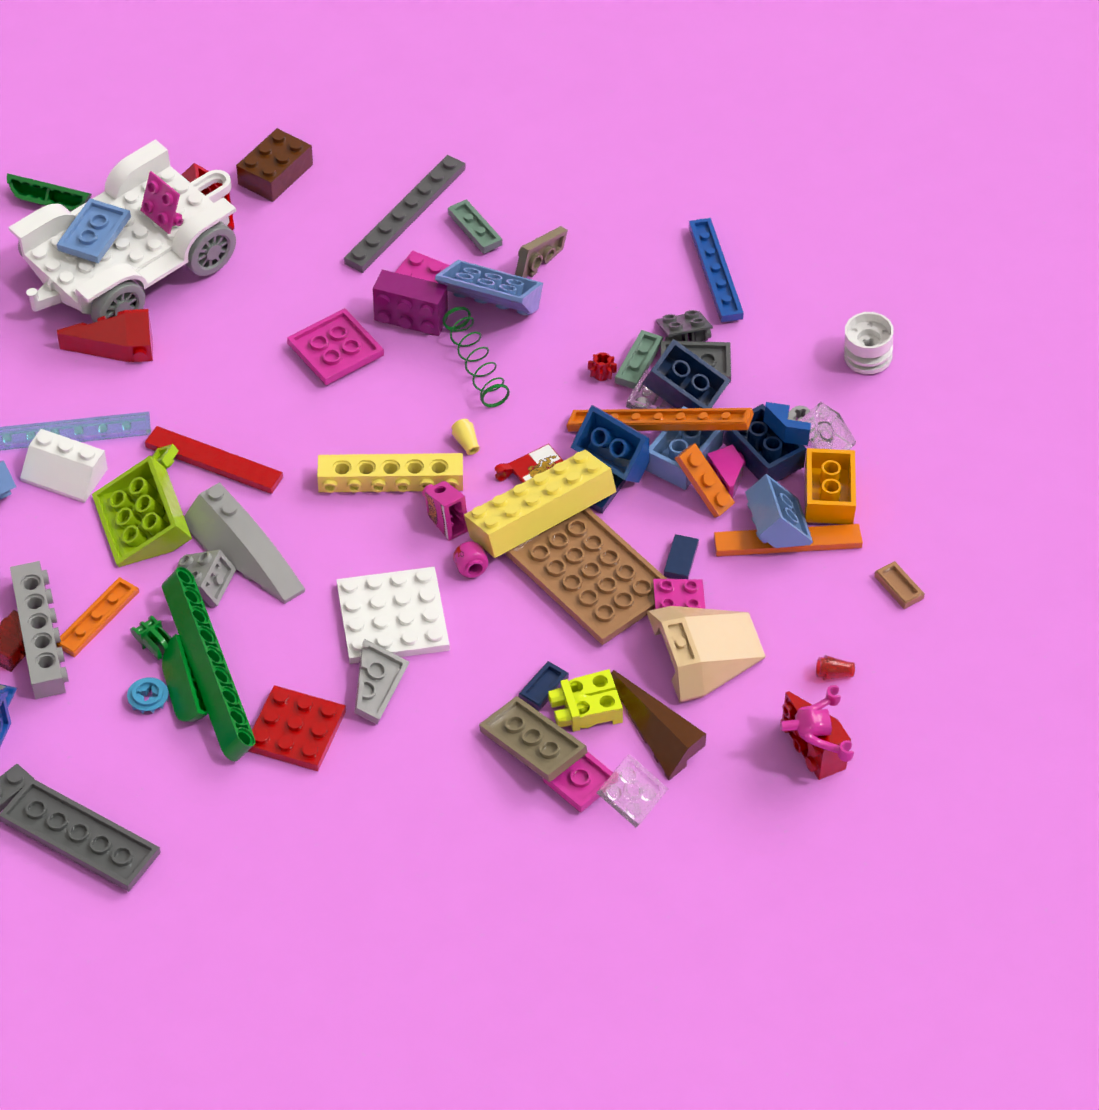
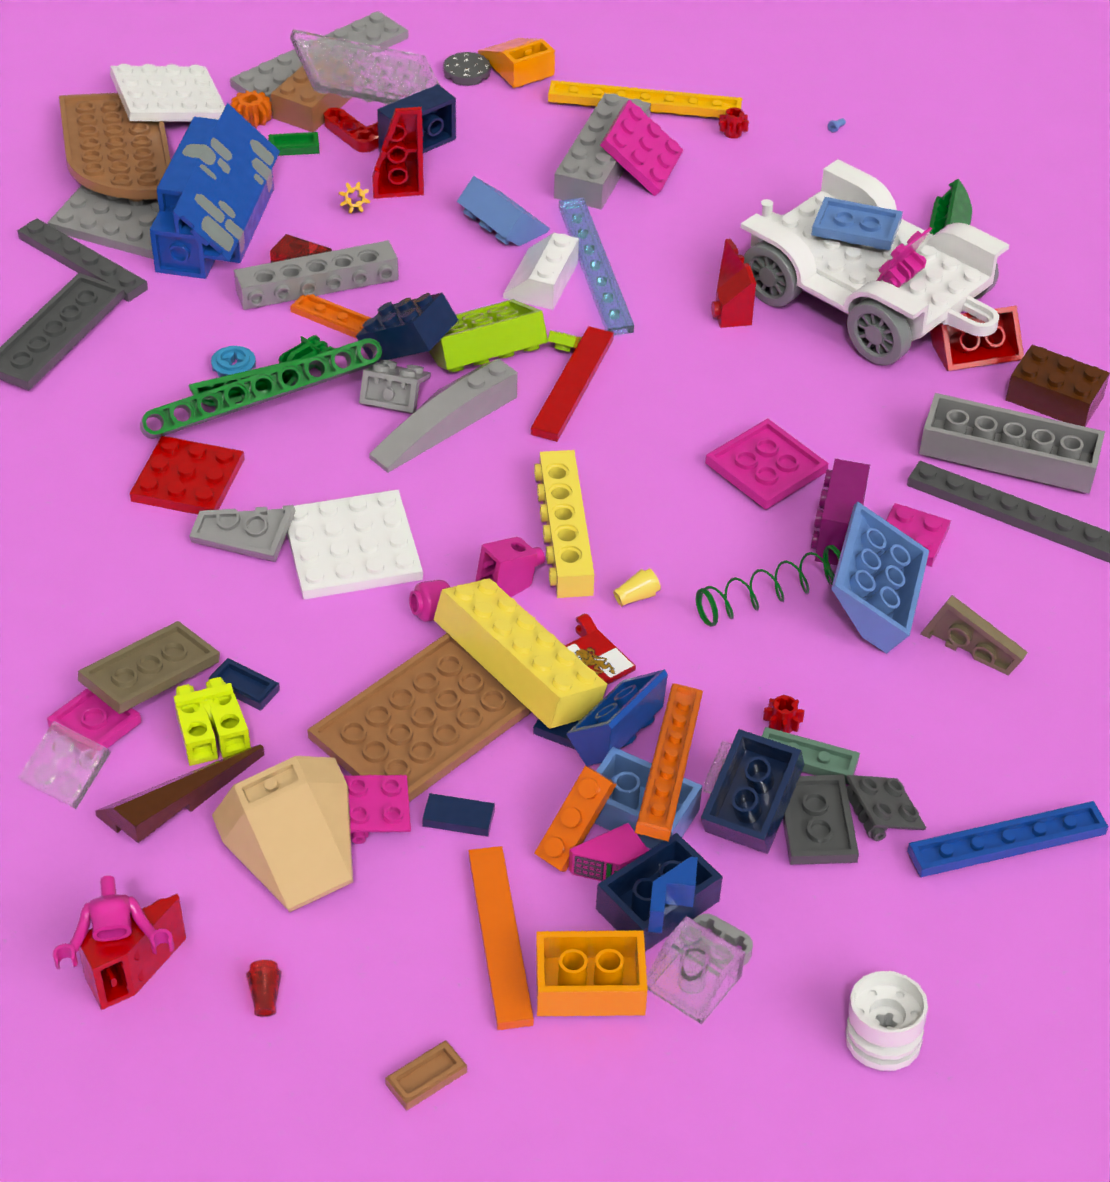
camera: 85 degrees right, 5 degrees down
(150, 552) = (409, 326): none -> dark blue brick
(339, 200) = (1012, 443): none -> light grey brick
(475, 226) = (1013, 577): sand green plate -> none
(777, 514) = (515, 906): medium blue slope -> none

